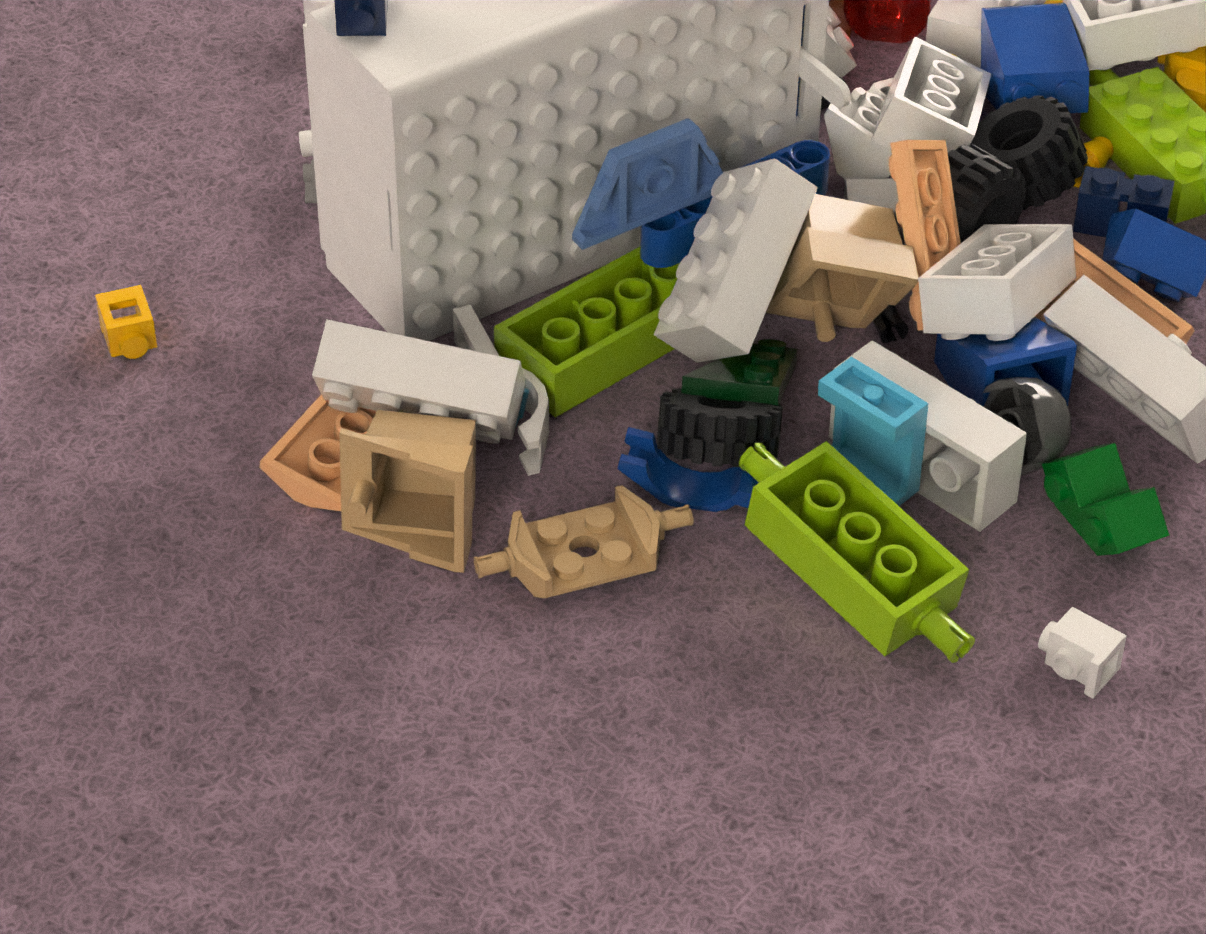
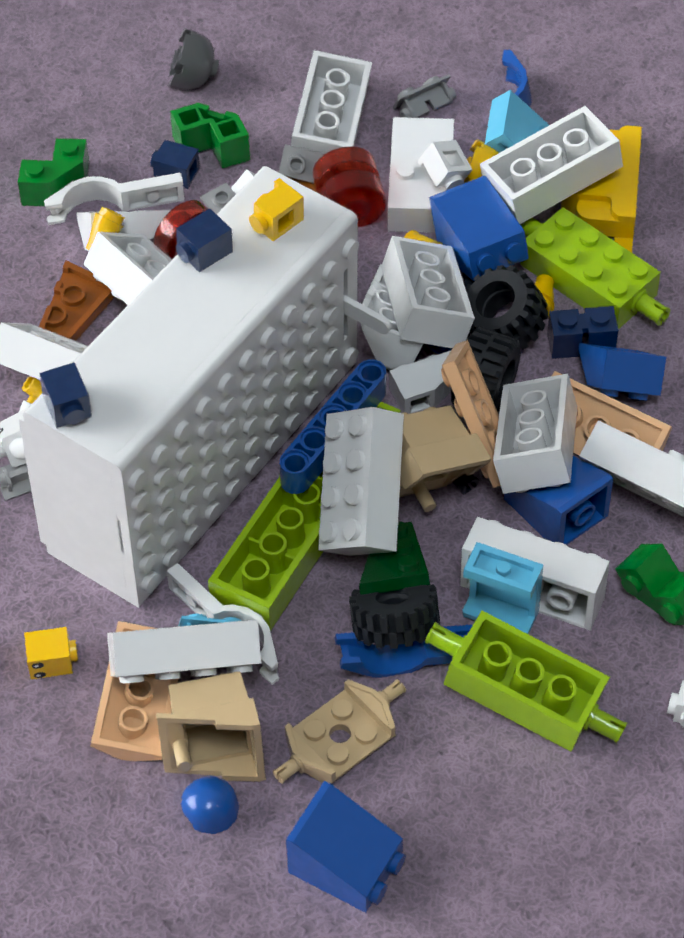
camera: 20 degrees left, 10 degrees up
(266, 360) = (50, 652): none -> yellow brick
(377, 576) = (210, 804): none -> blue hair
(514, 662) = (343, 849): none -> blue slope
(647, 182) = (282, 443): medium blue wing -> none
(1037, 411) = (595, 533): dark grey cylinder -> none

